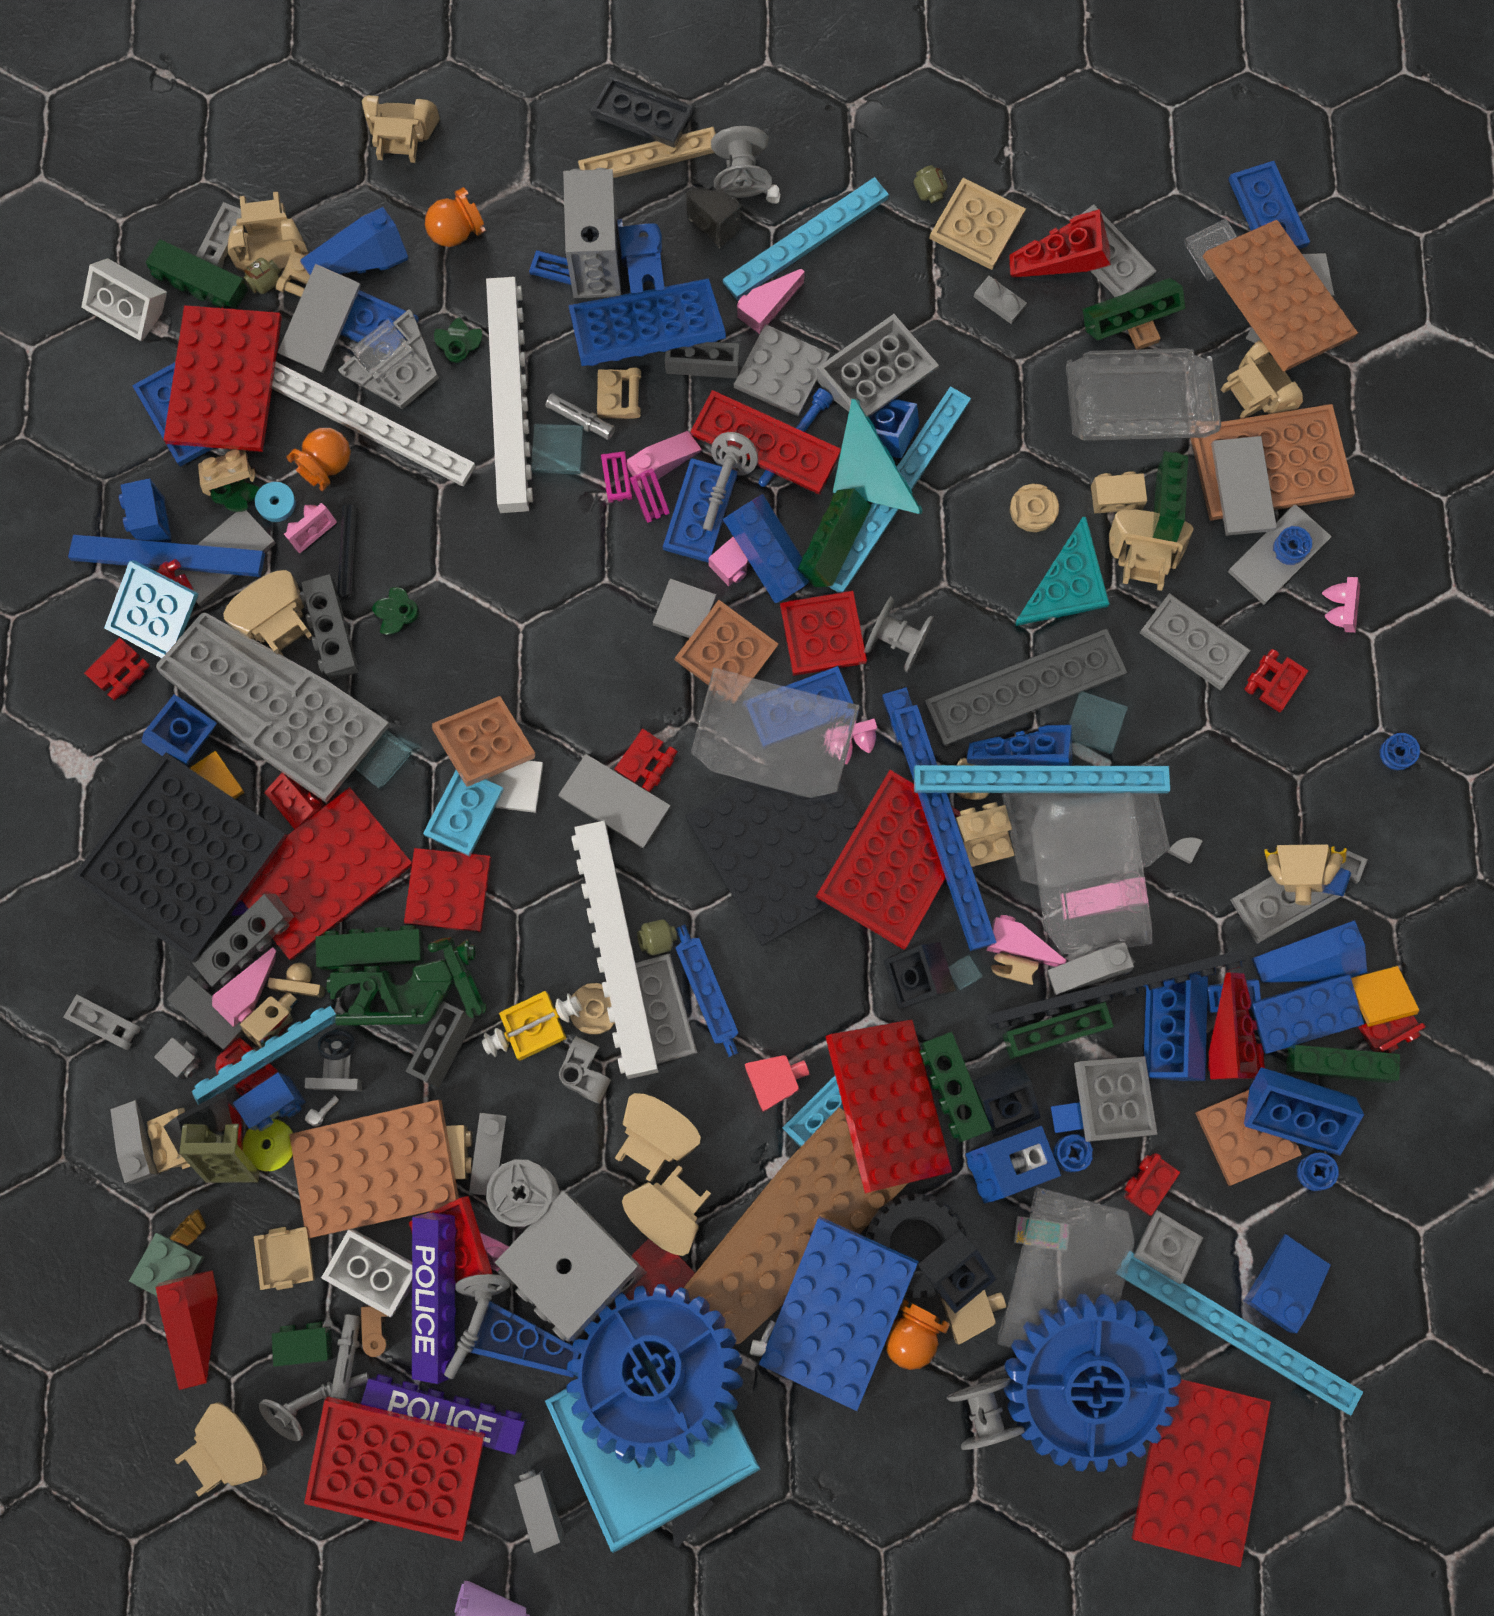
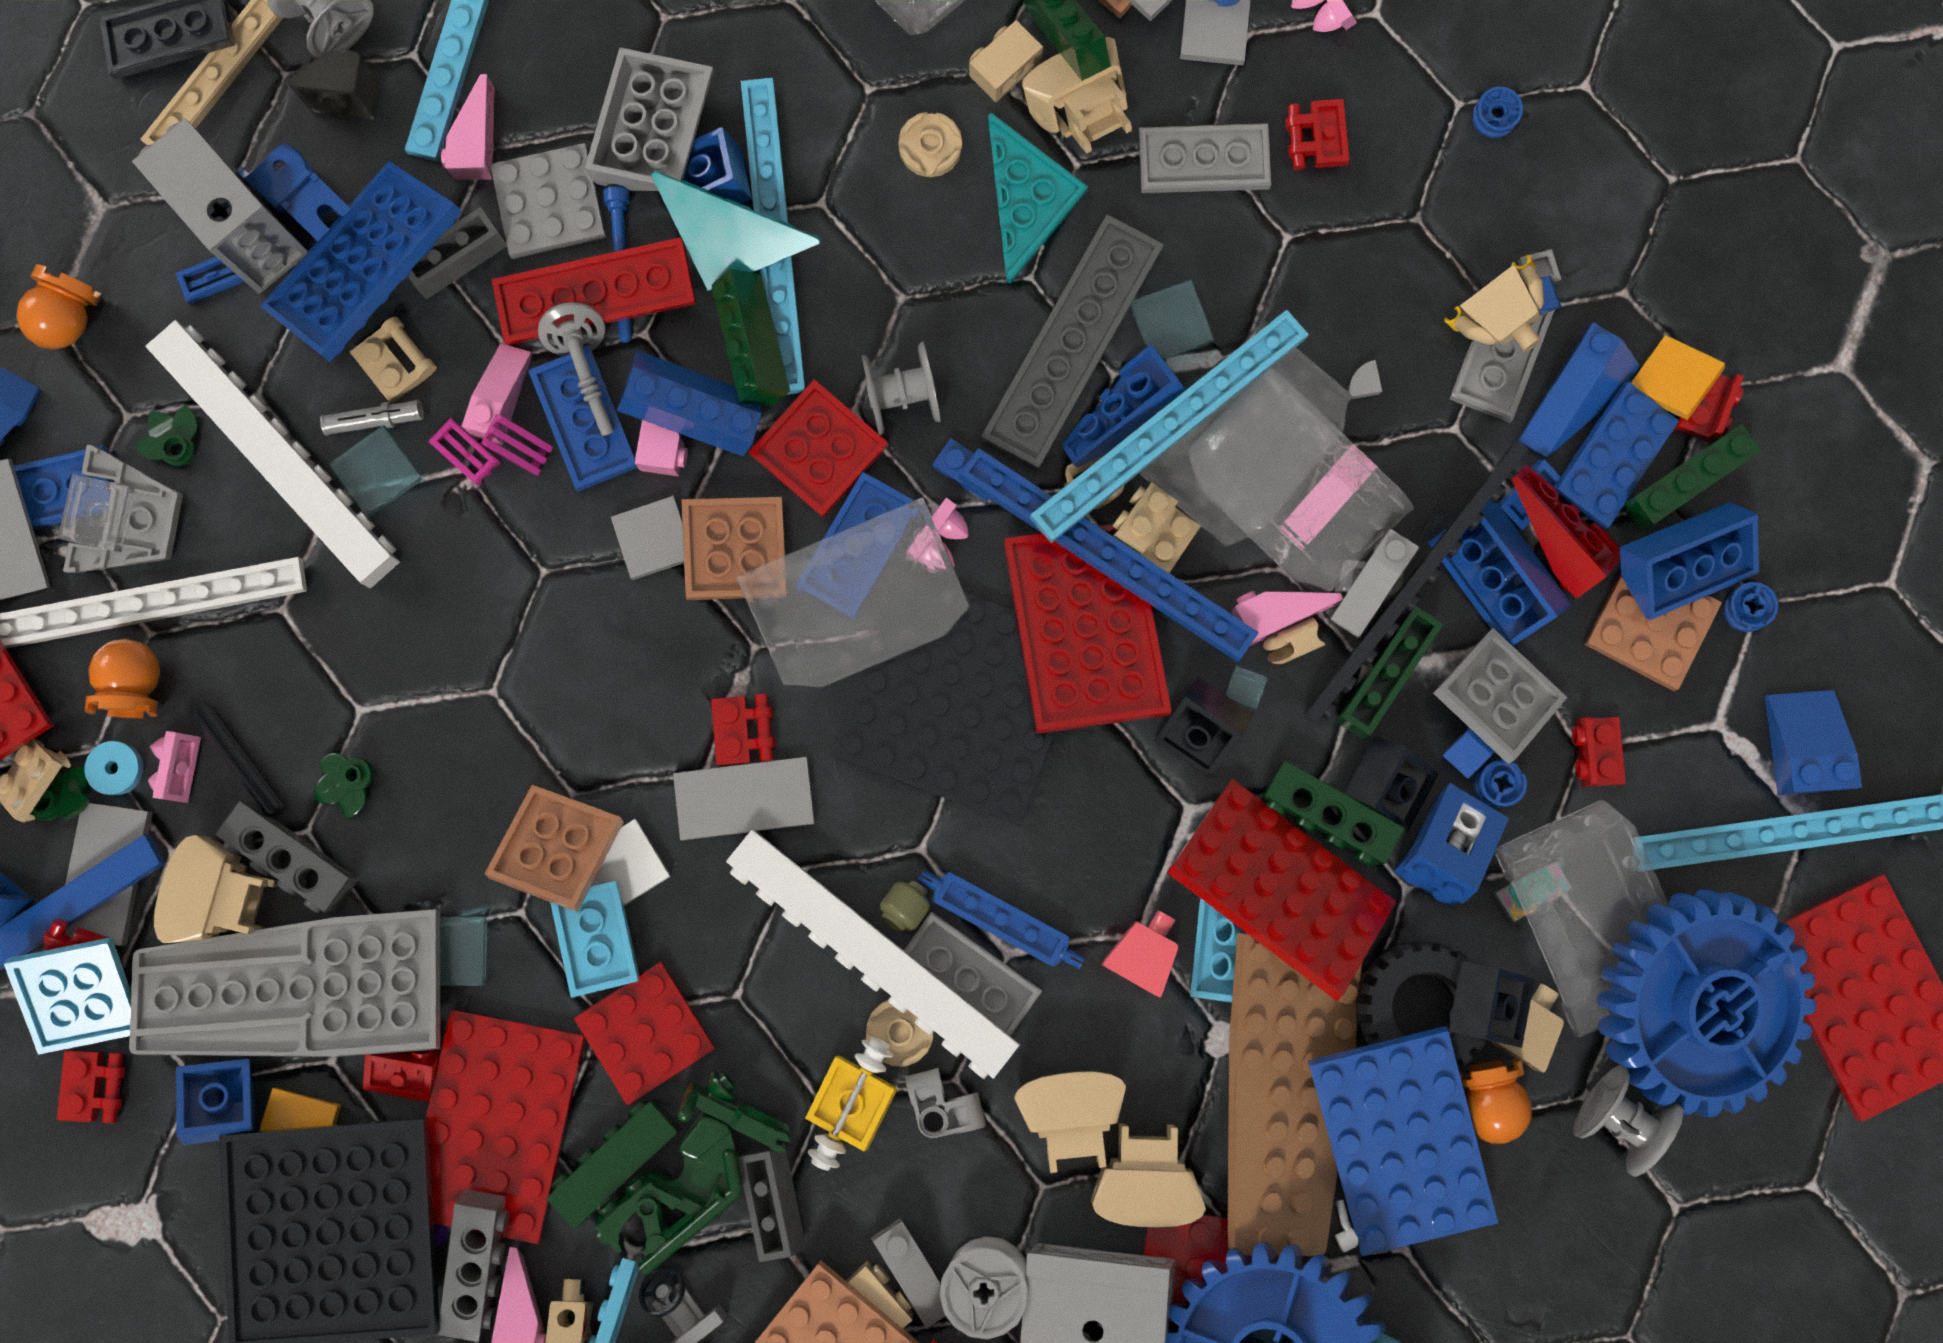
camera: 35 degrees left, 5 degrees up
(297, 982) = (564, 1257): tan tile -> none
(773, 194) = (383, 15): white hand -> none
(1168, 1247) = (1667, 802): light grey tile -> none

